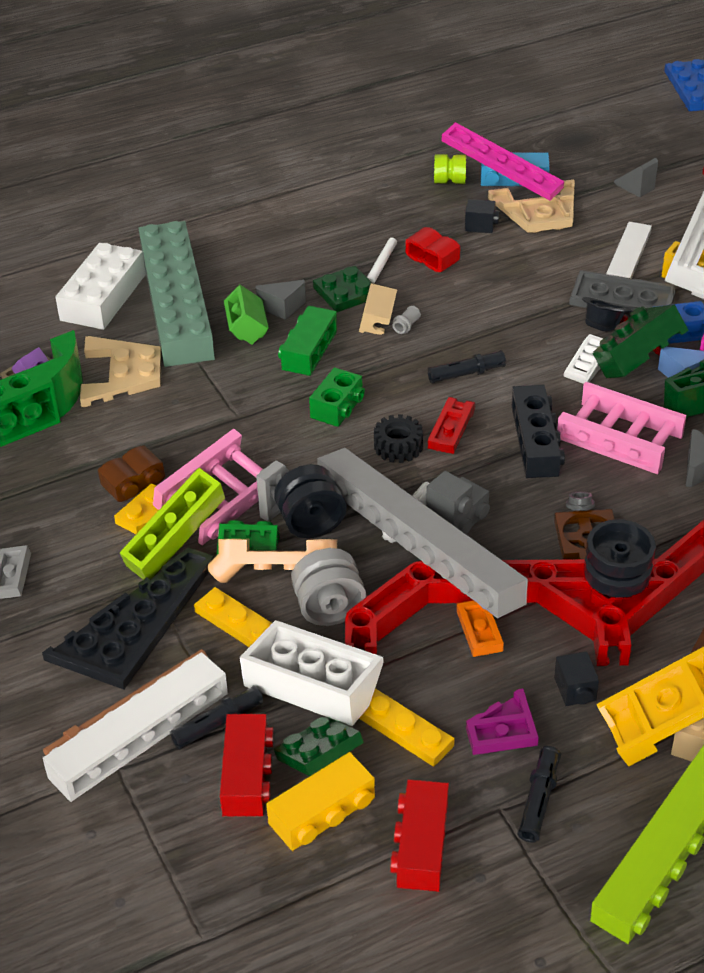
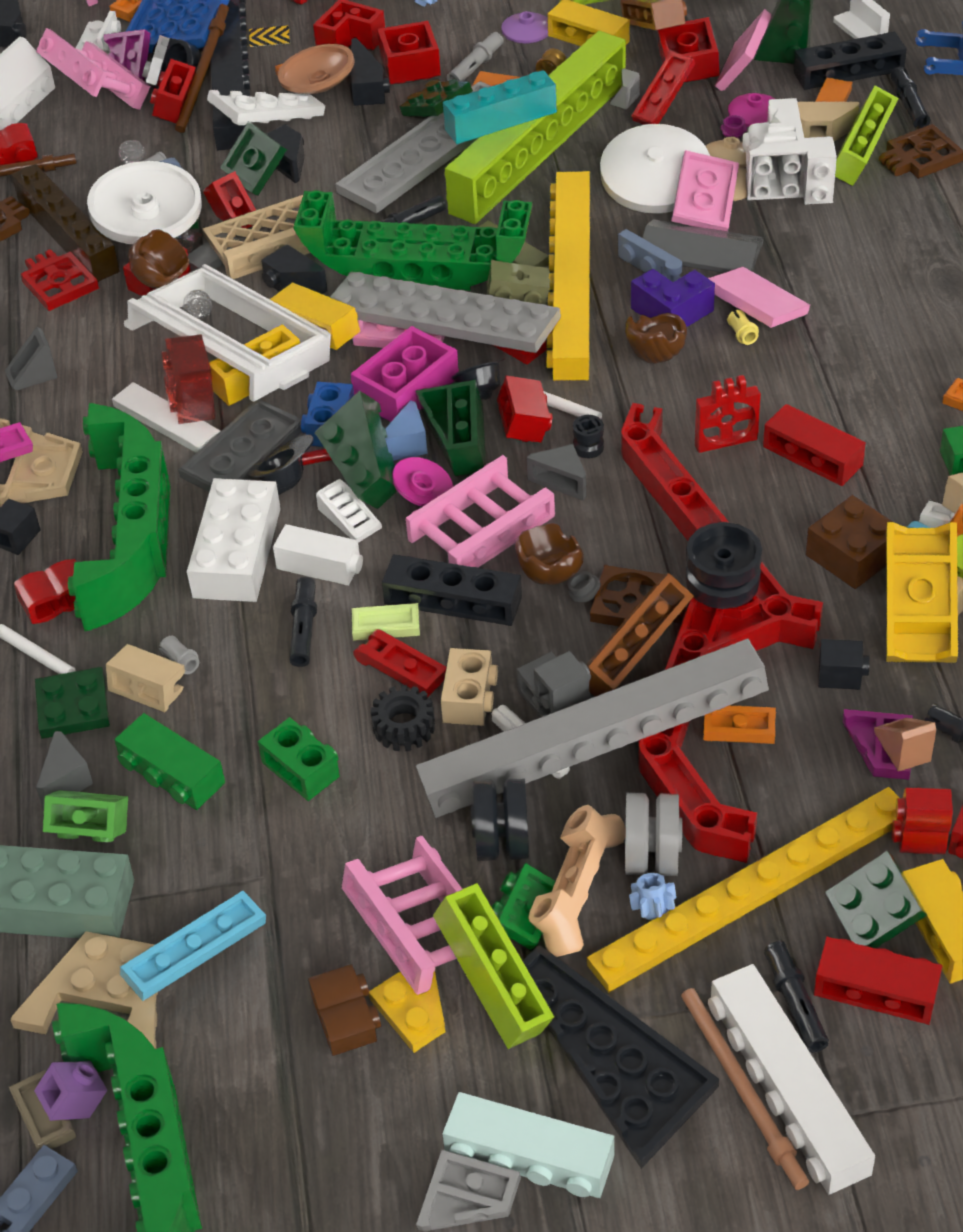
camera: 70 degrees left, 5 degrees up
(43, 592) = (531, 1144): none -> light aqua brick
(160, 391) = (192, 945): none -> medium azure plate
(266, 483) = (459, 852): light grey wing -> none
(279, 606) = (652, 896): none -> light blue gear
(312, 672) = (776, 879): white slope -> none
(409, 753) = (923, 820): none -> red brick
(435, 457) = (467, 687): none -> tan brick
(491, 409) = (392, 619): none -> yellowish green tile
(494, 729) = (907, 741): none -> nougat slope
(507, 259) = (117, 585): none -> green slope
(523, 311) = (234, 540): none -> white brick
(528, 533) = (636, 634): none -> dark orange brick
(532, 354) = (317, 554): none -> white brick
(593, 466) = (548, 554): none -> reddish brown piece
(640, 377) = (420, 480): none -> dark pink dish
(652, 236) = (188, 379): none -> clear red brick

